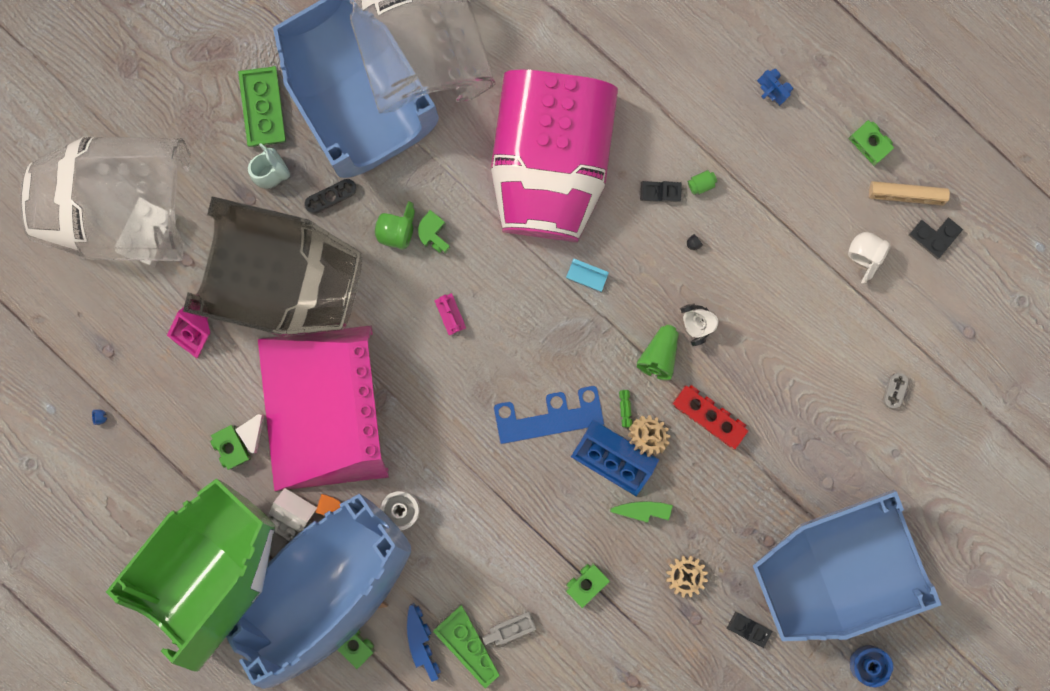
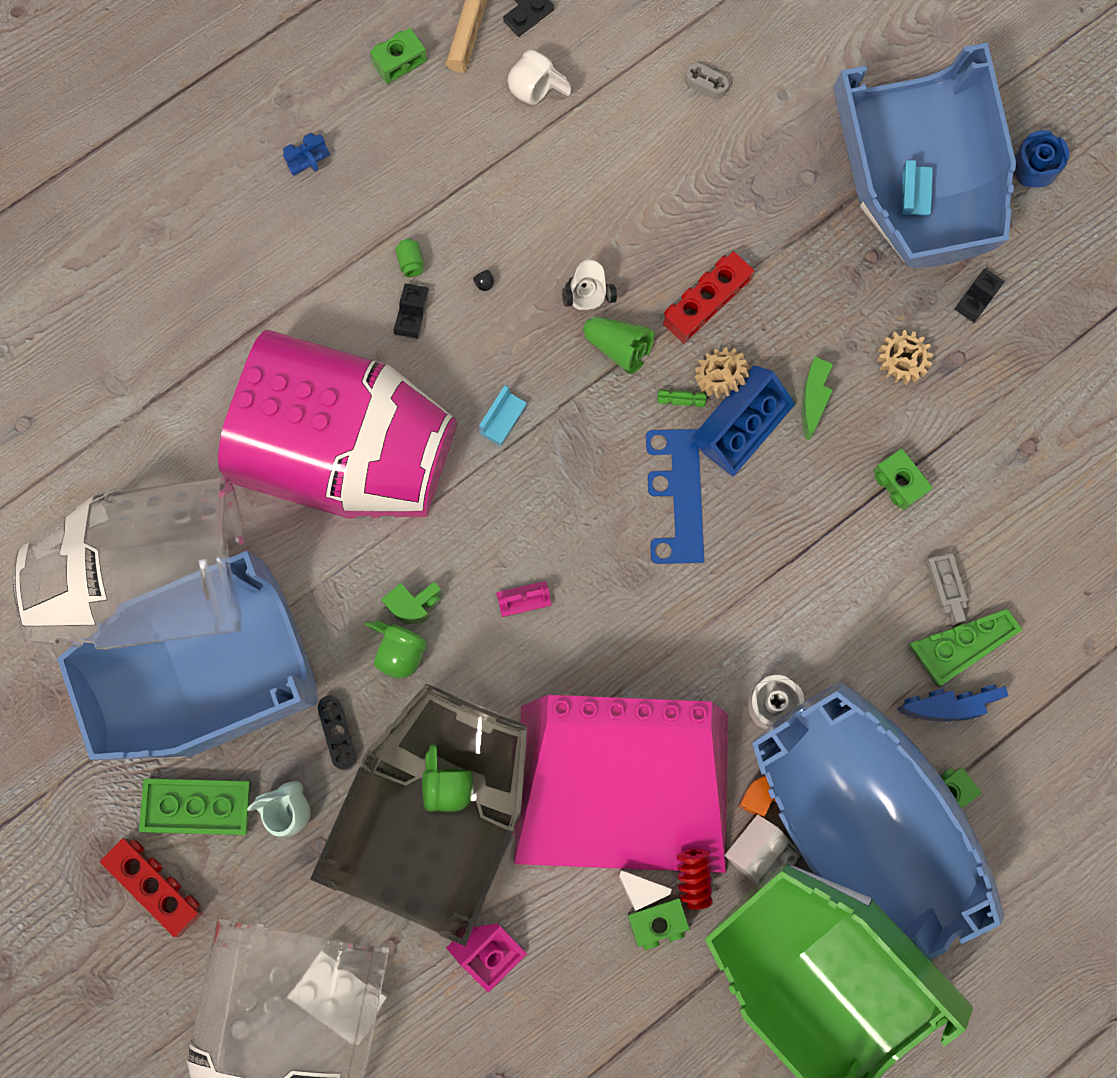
camera: 85 degrees left, 10 degrees down
(202, 77) = (118, 862): none -> red brick
(263, 468) = (695, 878): none -> red piece
(299, 280) = (445, 788): none -> bright green piece
(826, 569) = (916, 189): none -> medium azure panel

